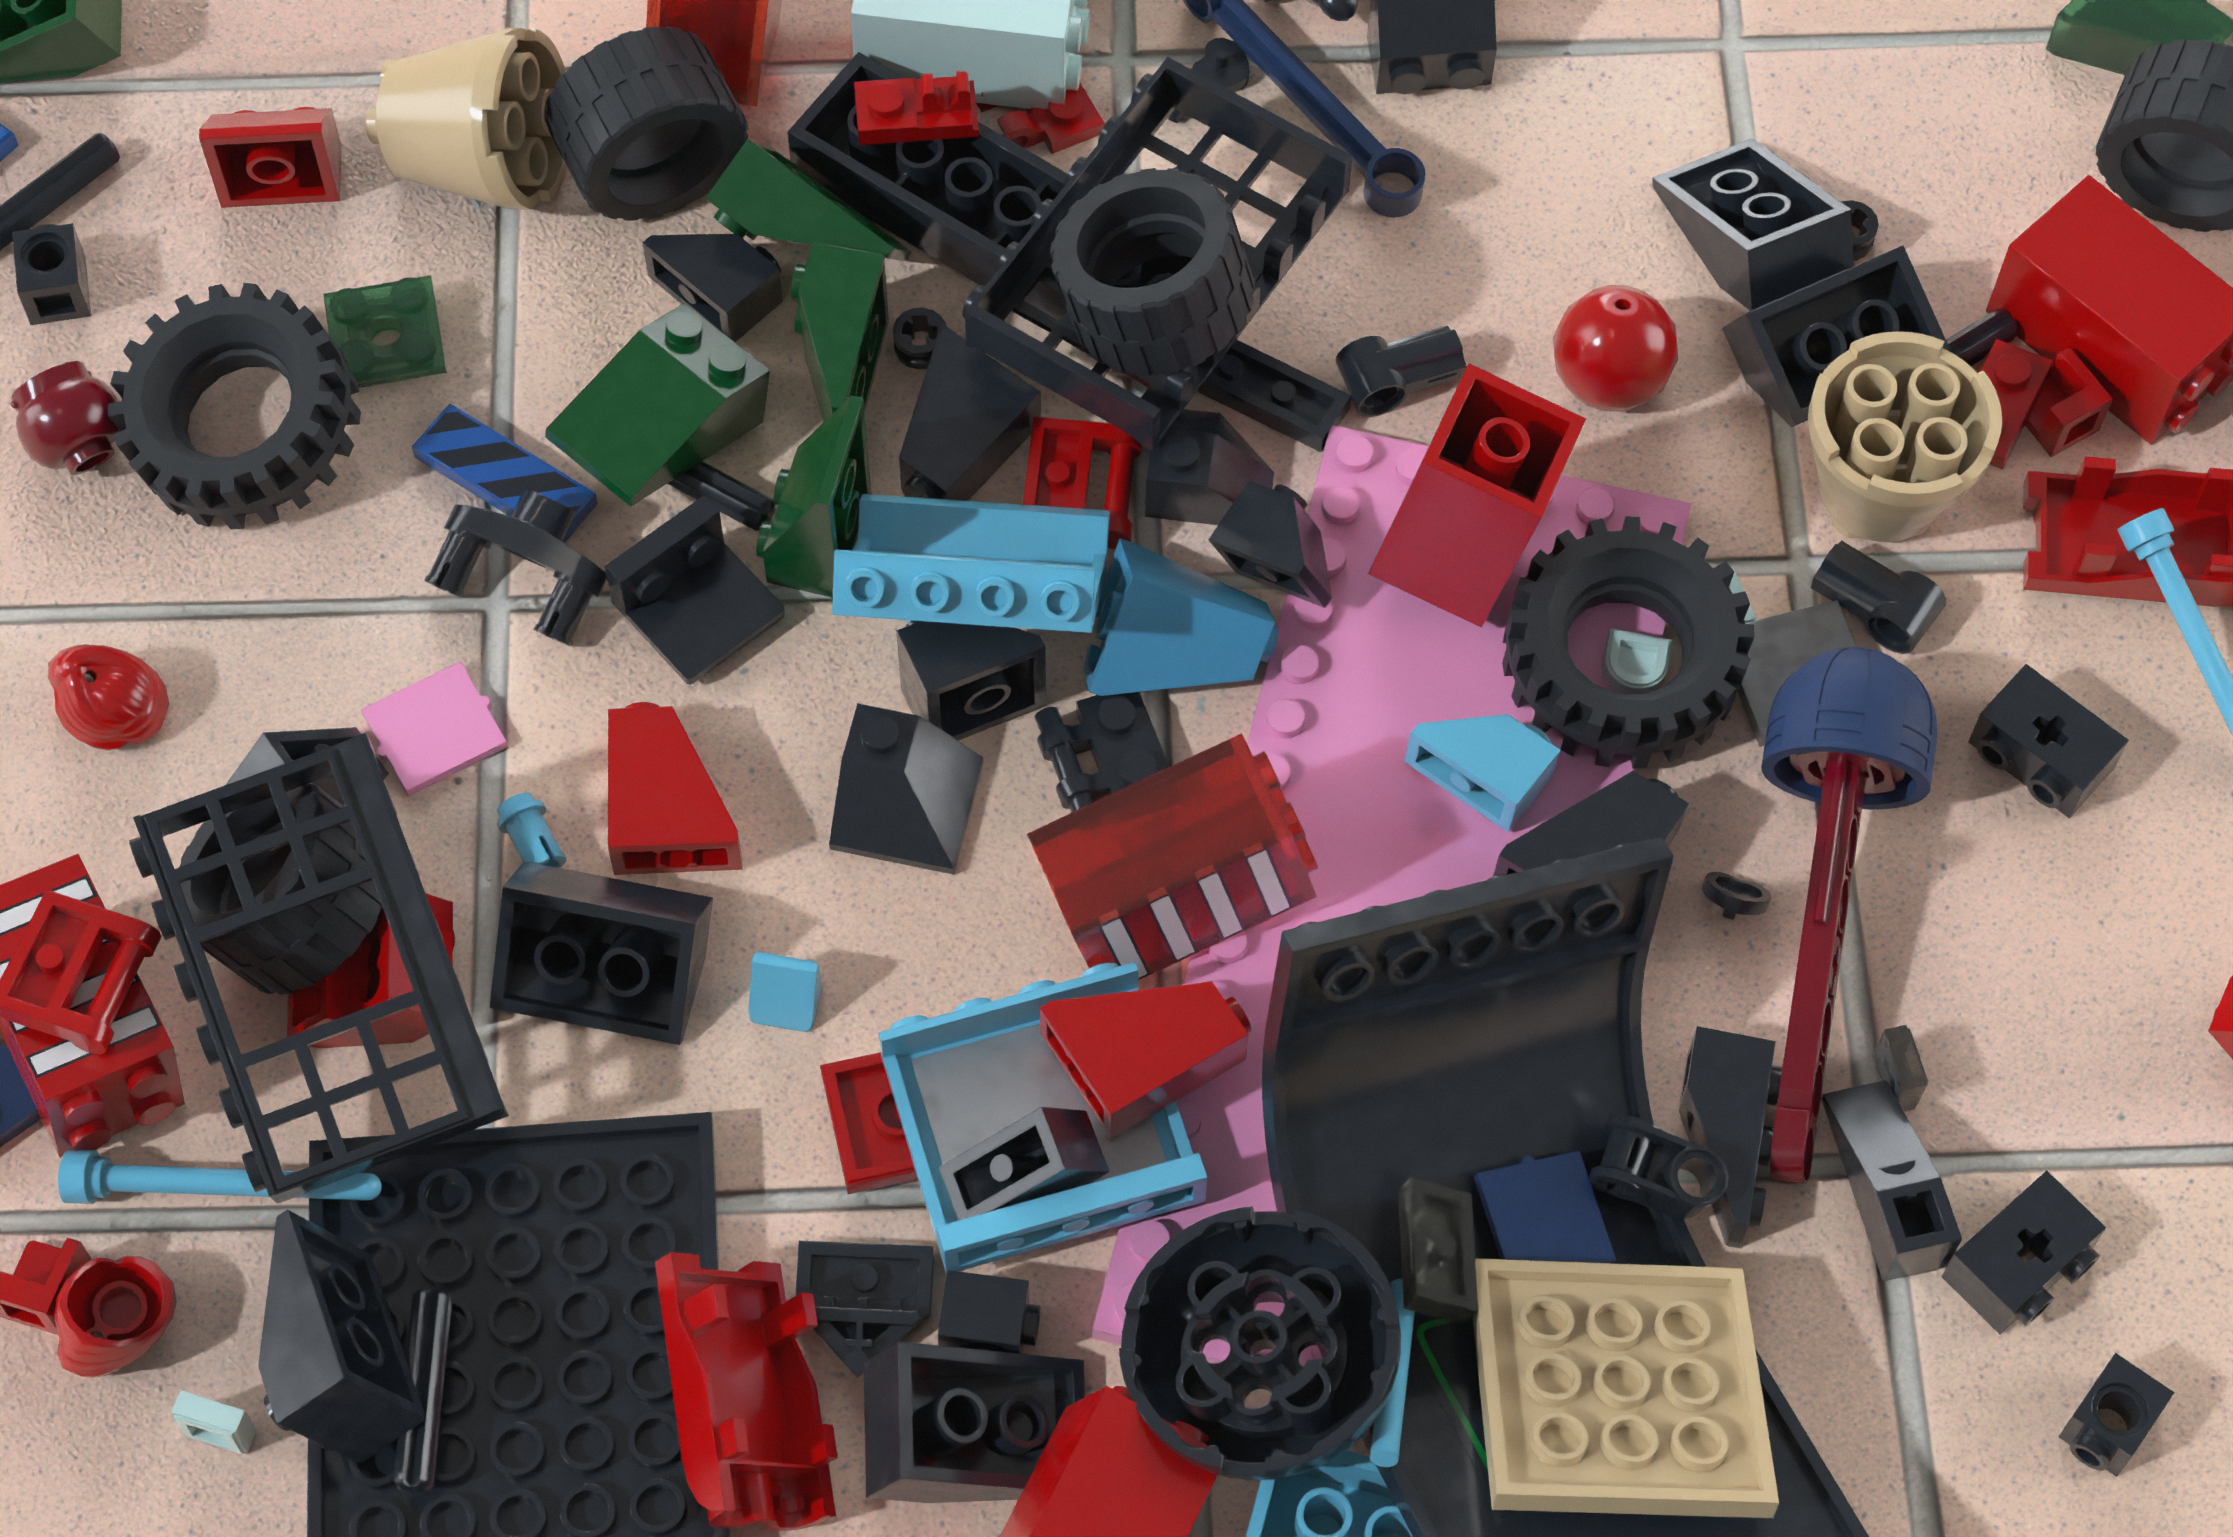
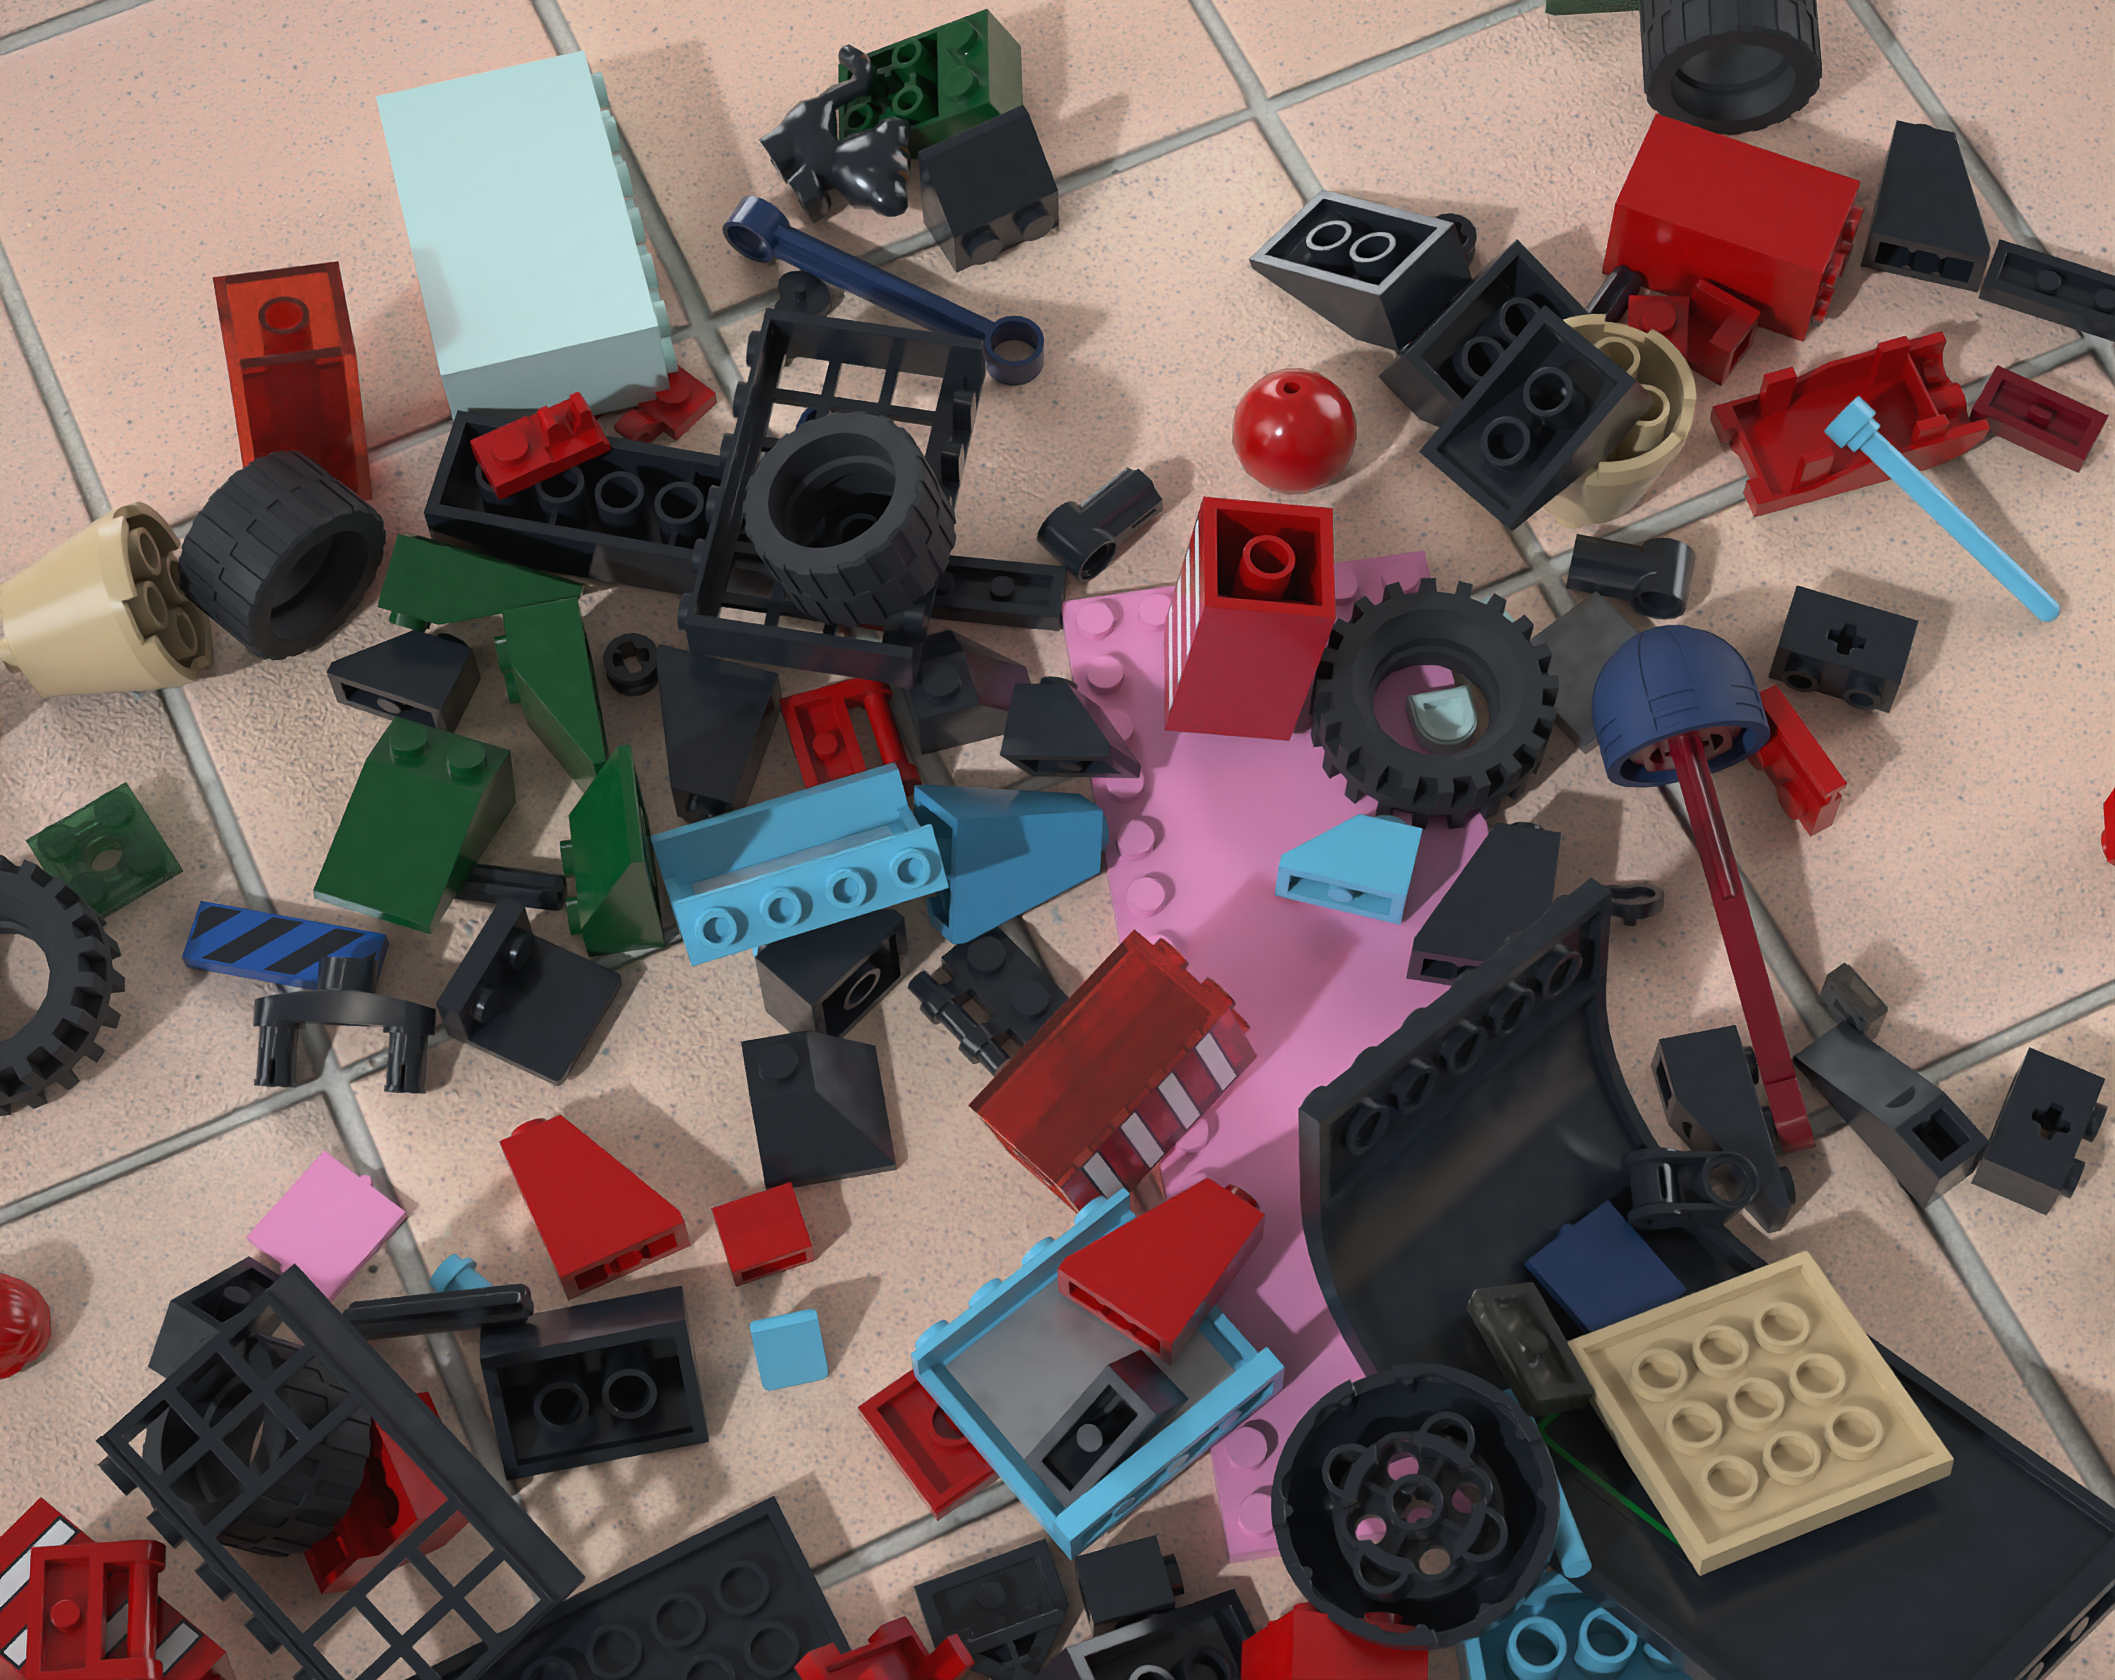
camera: 20 degrees left, 0 degrees up
(492, 837) = (441, 1312): none -> black axle
(807, 882) = (763, 1234): none -> red piece
(1827, 413) = (1536, 420): none -> black slope
(1949, 828) = (1798, 766): none -> red plate

